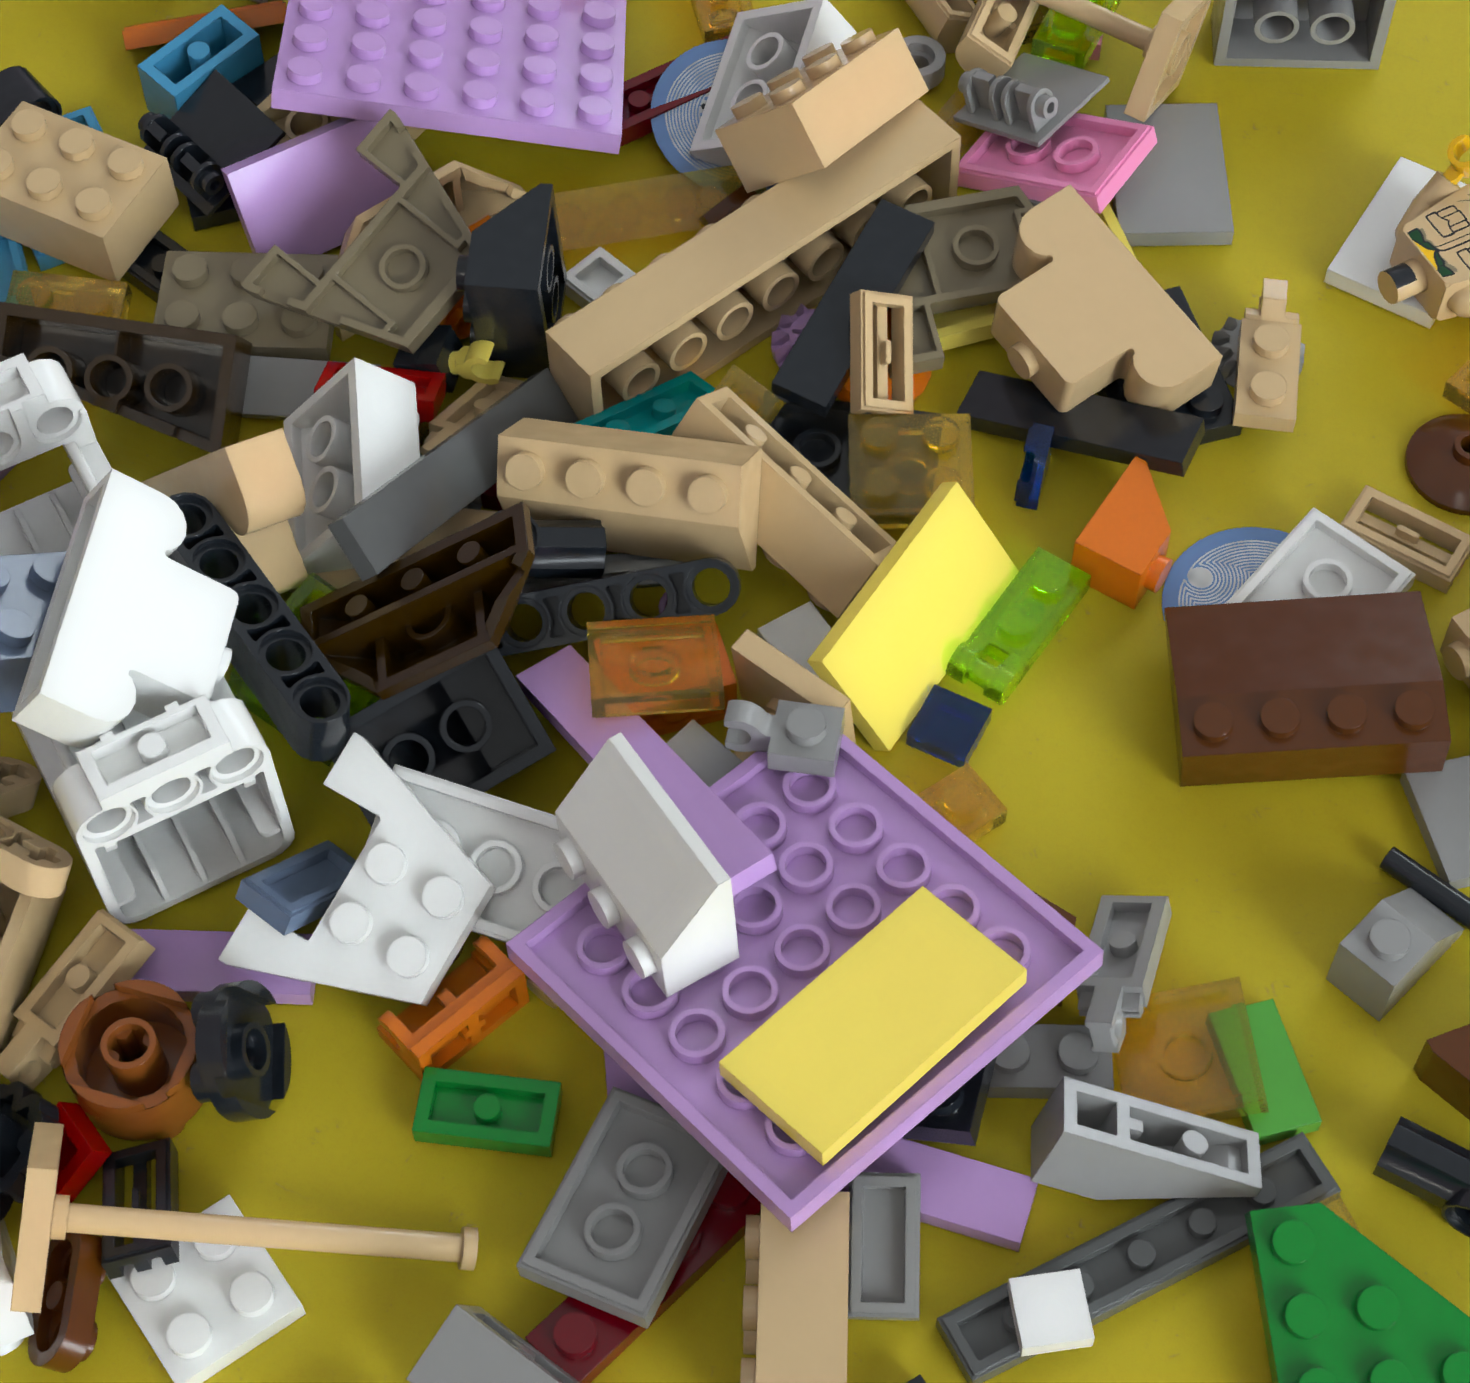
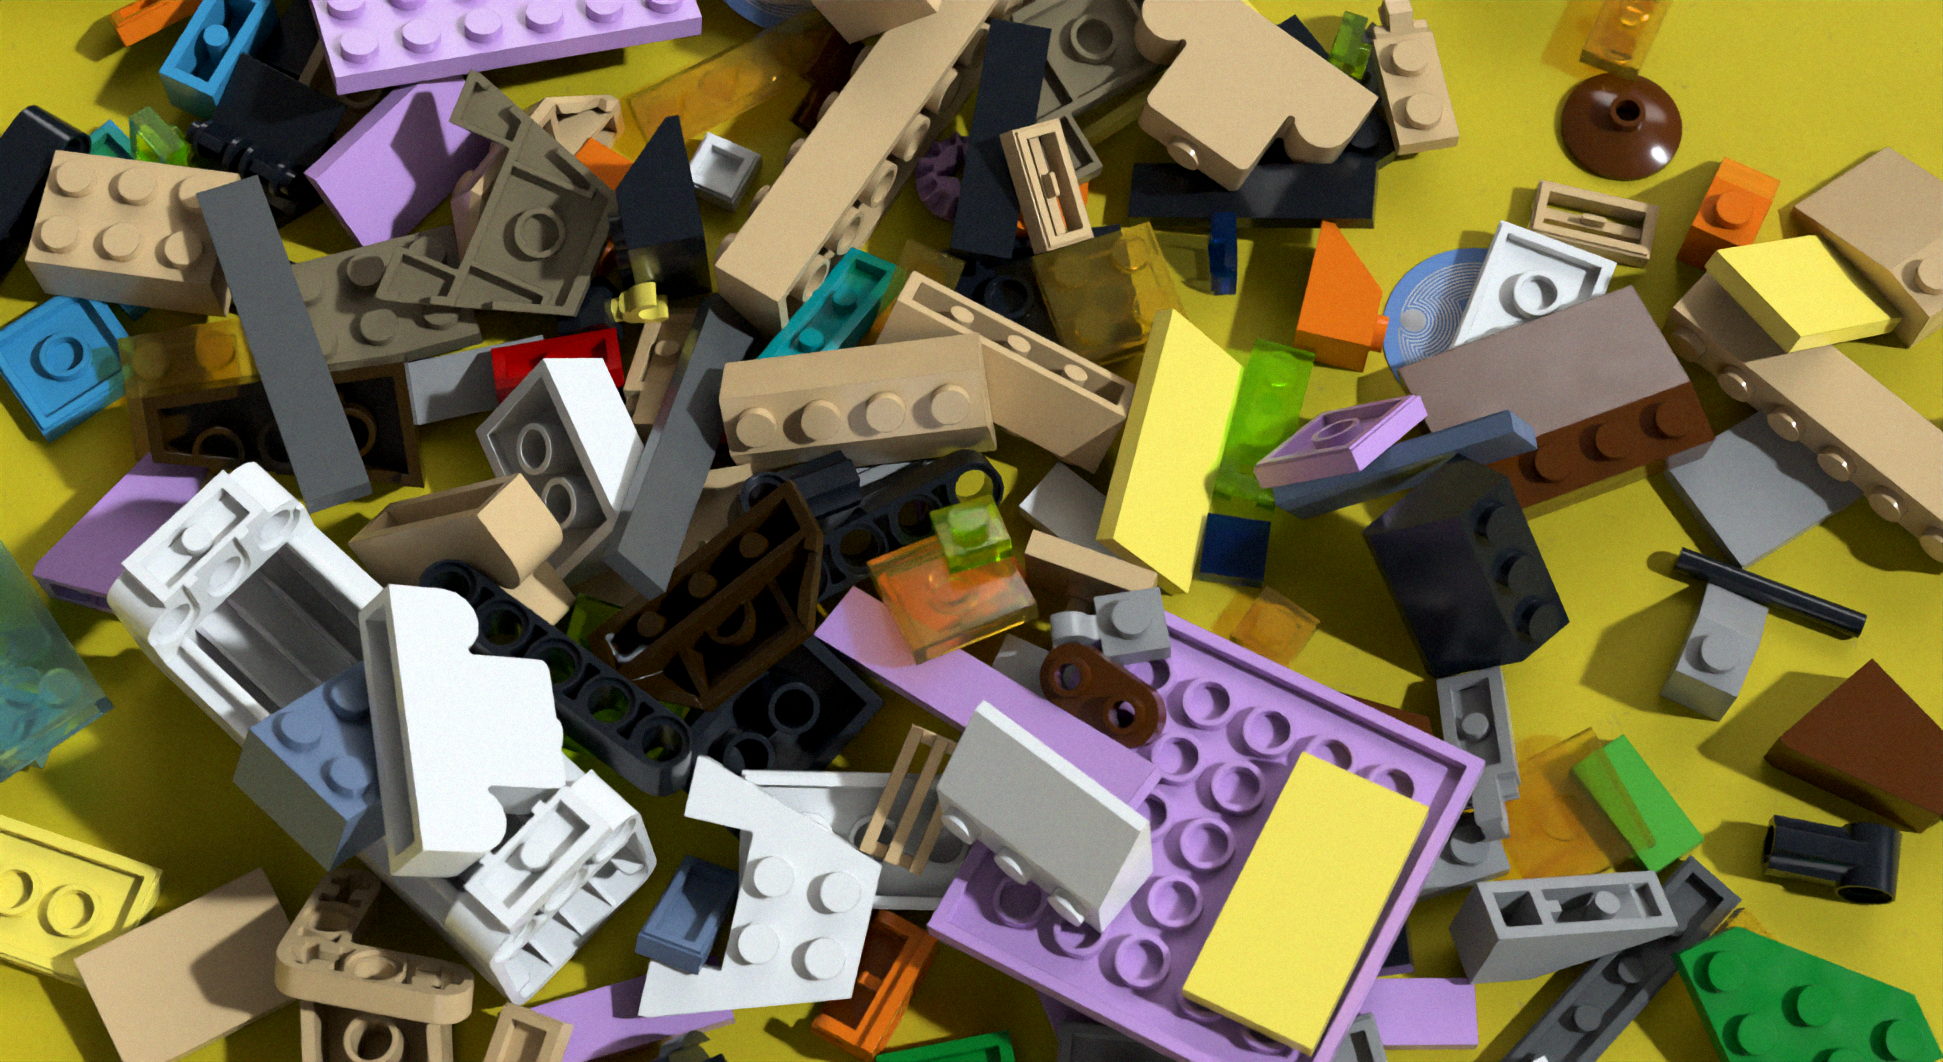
camera: 20 degrees left, 10 degrees up
(114, 118) = (155, 140): none -> clear neon green plate
(136, 293) = (284, 345): none -> dark grey tile
(513, 832) = (894, 853): none -> tan tile
(690, 621) = (971, 534): none -> clear neon green plate
(749, 781) = (1101, 692): none -> reddish brown plate
(1078, 644) = (1340, 441): none -> lavender tile
(1133, 680) = (1410, 463): none -> sand blue tile
(1156, 790) = (1466, 571): none -> black slope
(1213, 313) = (1348, 50): none -> clear neon green plate

